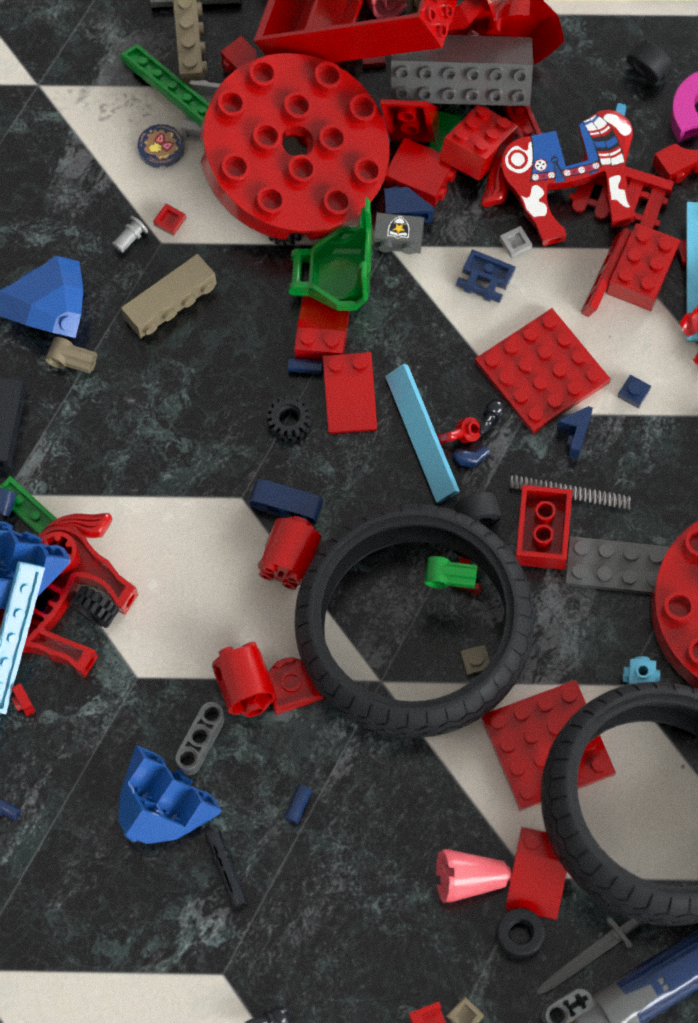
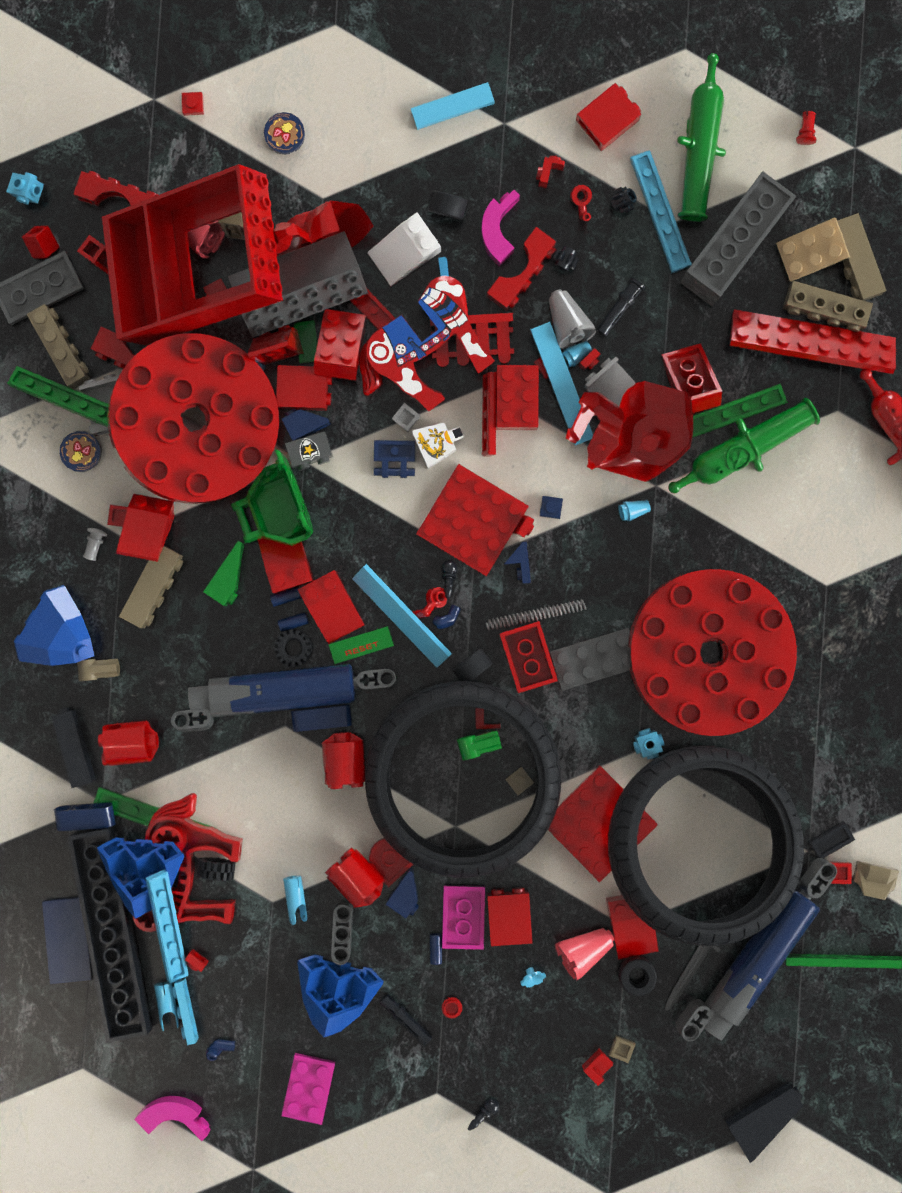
camera: 20 degrees left, 20 degrees up
(66, 437) = (128, 743): none -> red cylinder
(77, 901) = (308, 1088): none -> dark pink plate
(165, 678) = (295, 897): none -> medium azure piece
(194, 232) = (146, 527): none -> red slope
(250, 322) = (226, 580): none -> green slope
(252, 452) = (276, 692): none -> piece
(285, 879) = (451, 1007): none -> red plate
(289, 727) = (405, 896): none -> dark blue slope
(306, 393) = (293, 622): none -> dark blue axle
(345, 781) = (463, 917): none -> dark pink plate
(364, 447) = (361, 645): none -> green tile
(395, 885) = (532, 978): none -> medium azure plant
(398, 802) = (509, 917): none -> red brick
(537, 277) = (436, 442): none -> white torso
(586, 86) = (404, 249): none -> white slope
(597, 396) = (524, 527): none -> red plate

